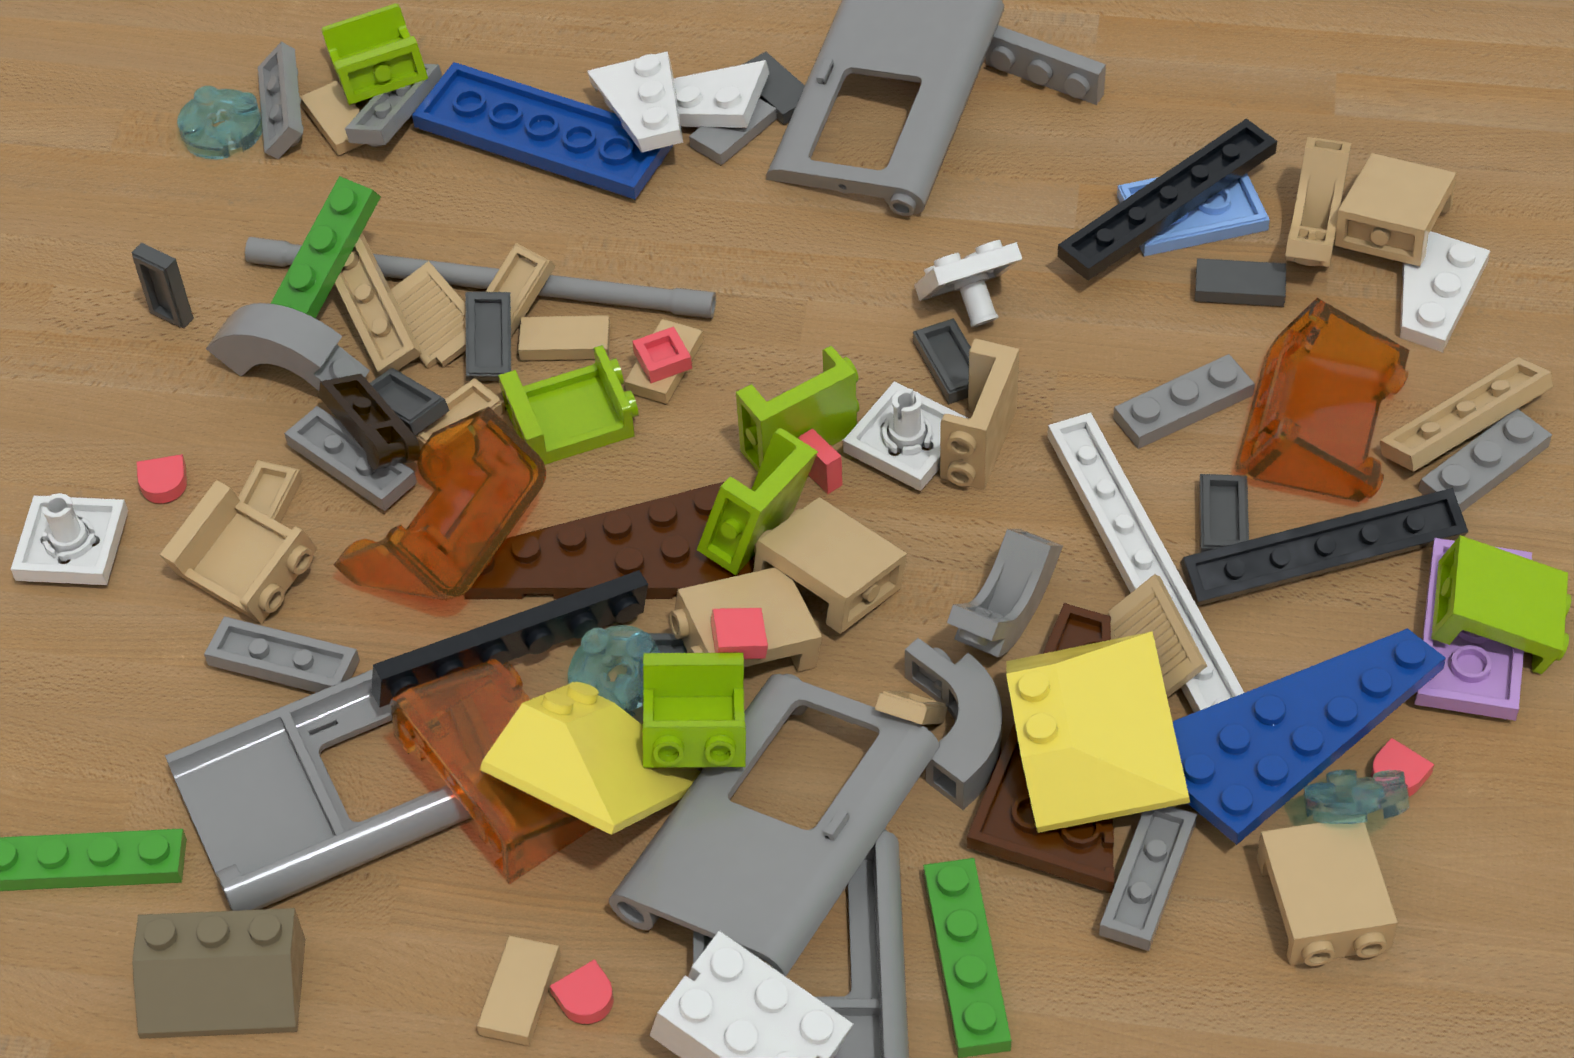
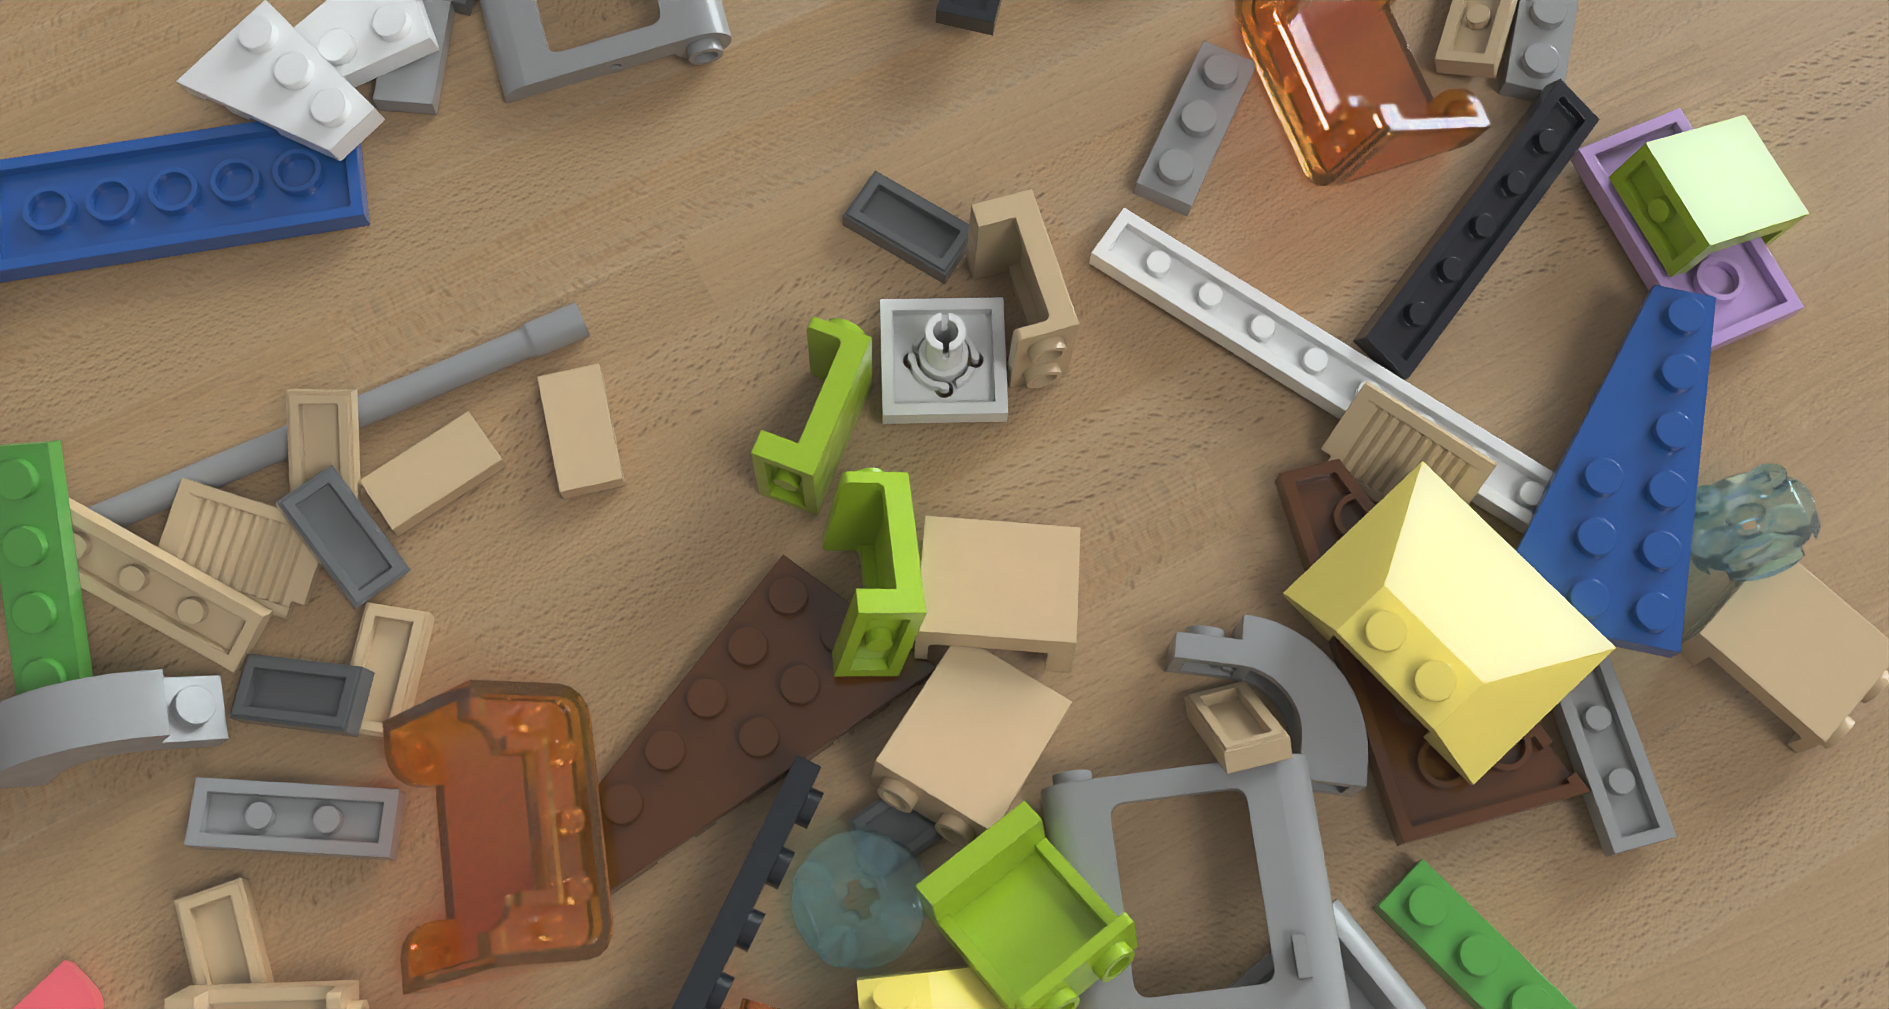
camera: 45 degrees left, 20 degrees up
(369, 420) = (288, 761): dark brown plate -> none
(571, 409) = (521, 572): lime panel -> none
(662, 354) = (581, 430): coral tile -> none
(739, 632) = (995, 774): coral tile -> none
(828, 463) = (872, 451): coral tile -> none
(969, 277) = (865, 110): white plate -> none
(1009, 595) = (1216, 507): light grey arch -> none
(1222, 510) = (1342, 249): dark grey tile -> none
(1399, 757) = (1733, 447): coral tile -> none

